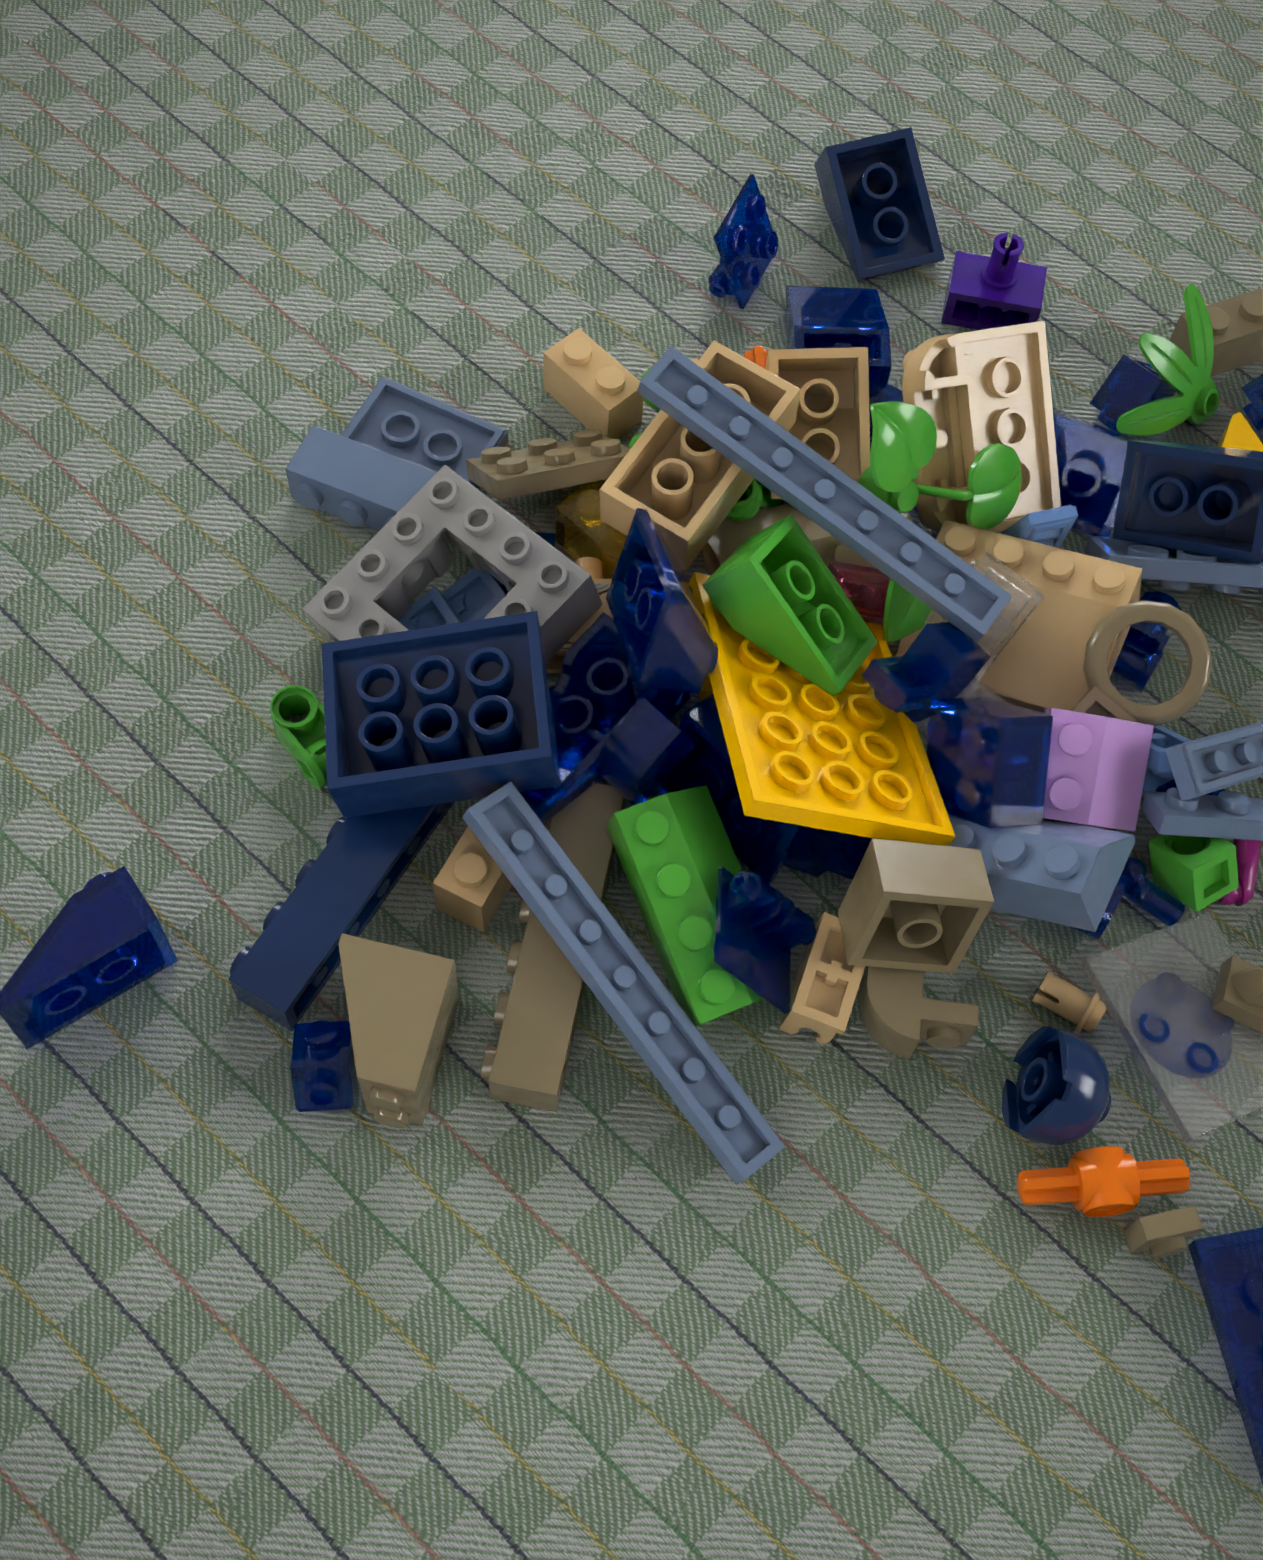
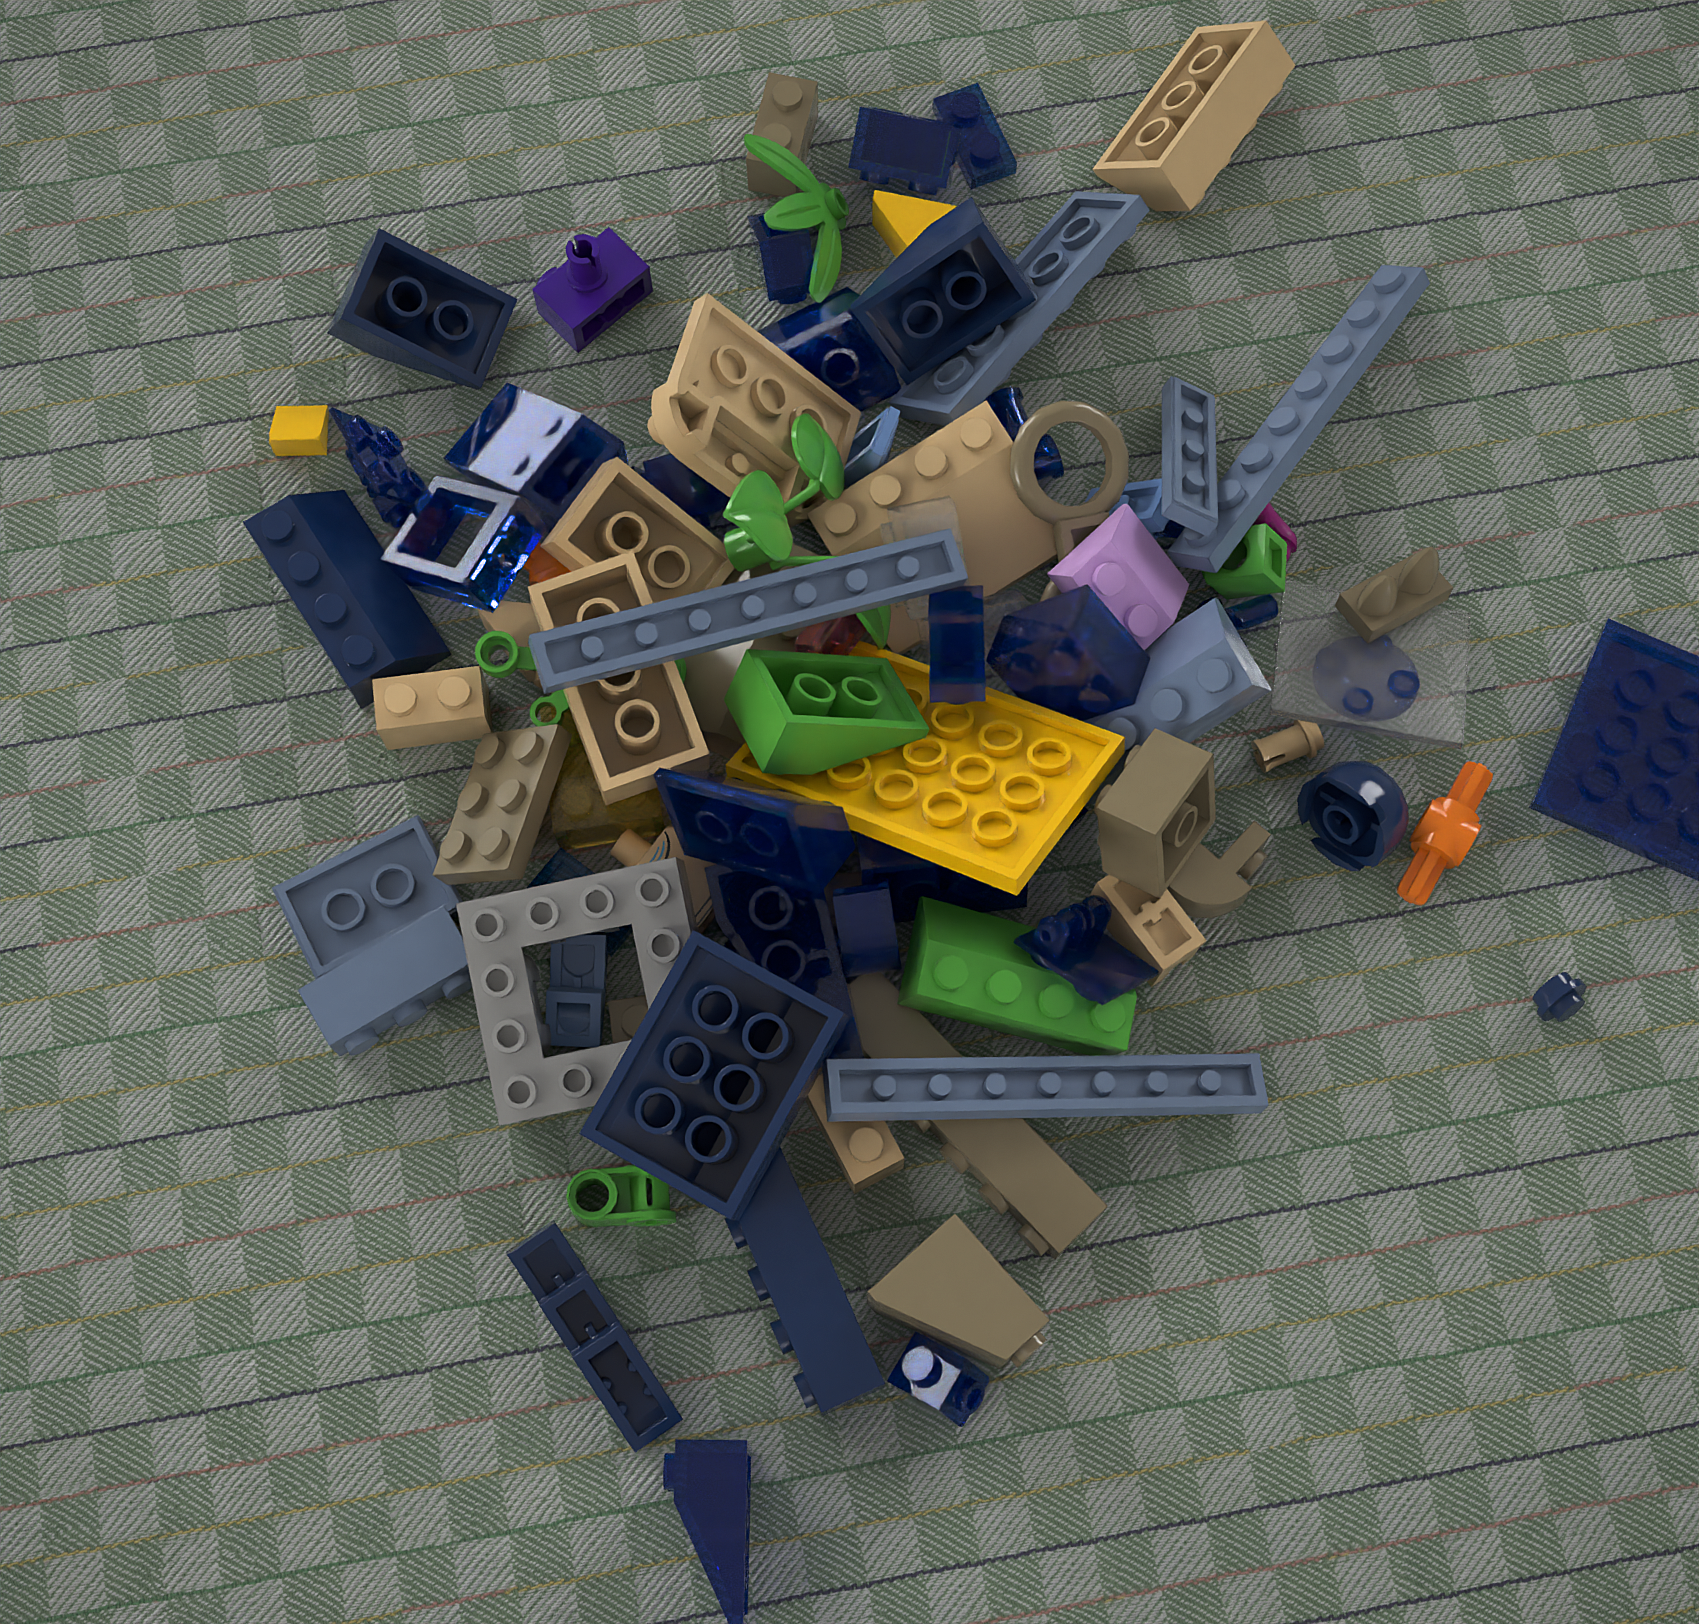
camera: 50 degrees left, 10 degrees up
(189, 788) = (594, 1336): none -> dark blue slope
(638, 281) = (345, 590): none -> dark blue slope
(721, 190) = (299, 430): none -> yellow slope
(730, 315) = (479, 576): none -> clear blue window
(1038, 1381) = (1559, 997): none -> dark blue plate
(1163, 1232) = (1512, 819): dark tan plate -> none

